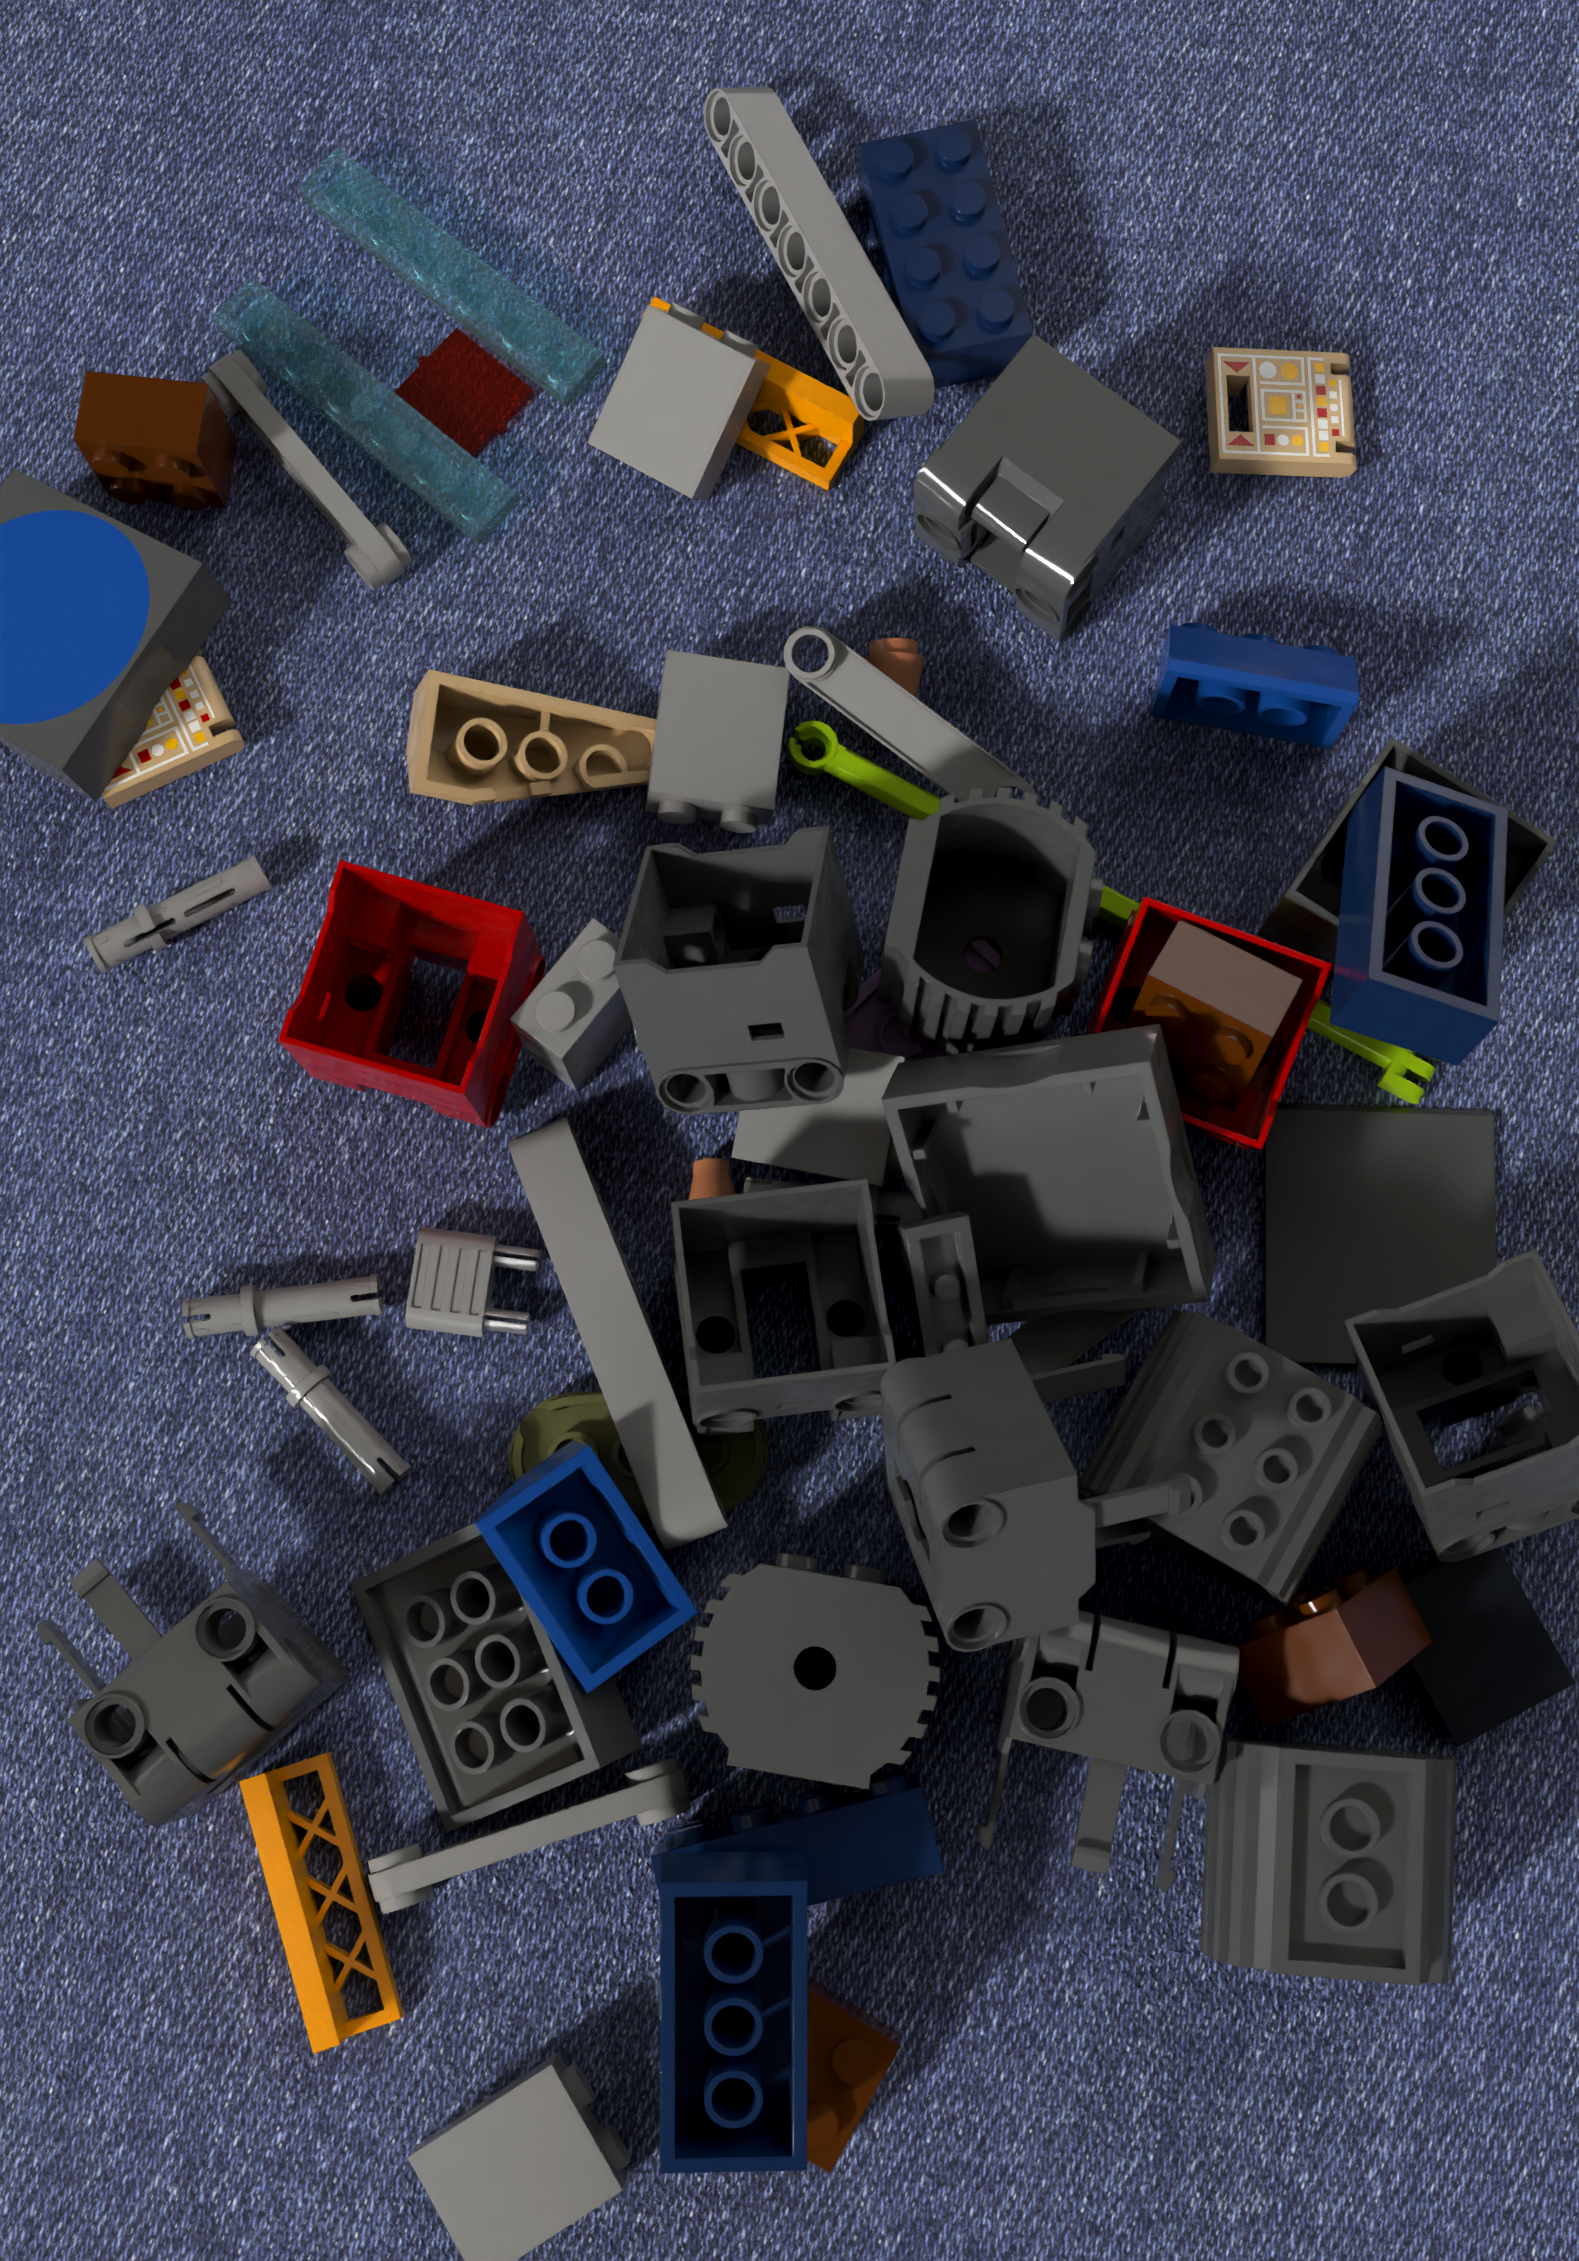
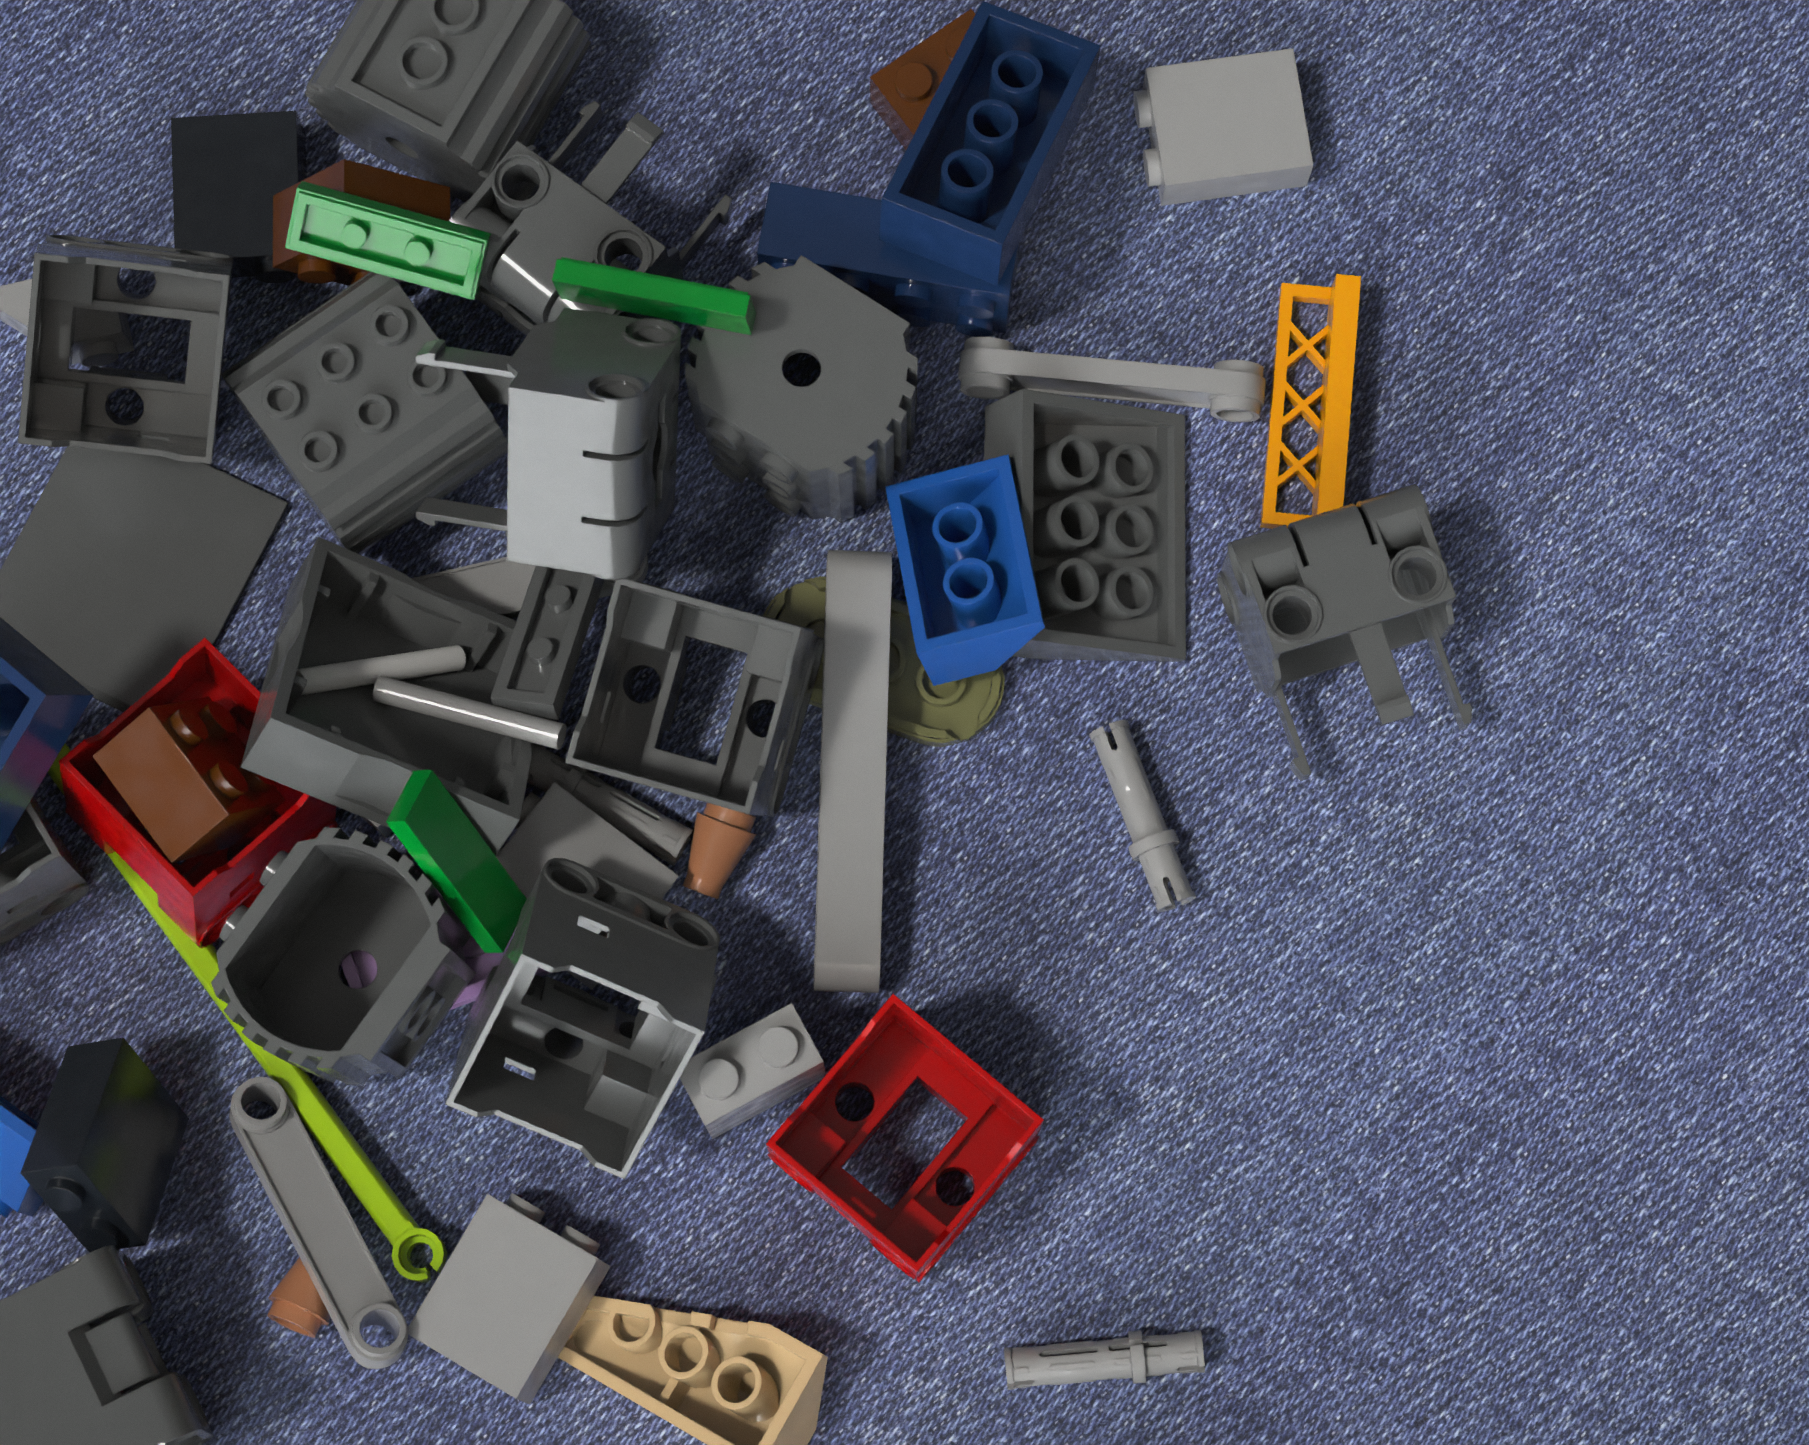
camera: 160 degrees left, 0 degrees up
(282, 1306) = (1149, 930): light grey pin -> none
(456, 1283) = (981, 884): light grey piece -> none
(922, 1038) = (457, 860): none -> green tile
(983, 1196) = (469, 712): none -> light grey bar
(992, 1670) = (654, 295): none -> green tile
(1090, 1206) = (395, 666): none -> white bar
(1121, 693) = (105, 1145): none -> black brick
(1288, 1617) = (387, 240): none -> tile

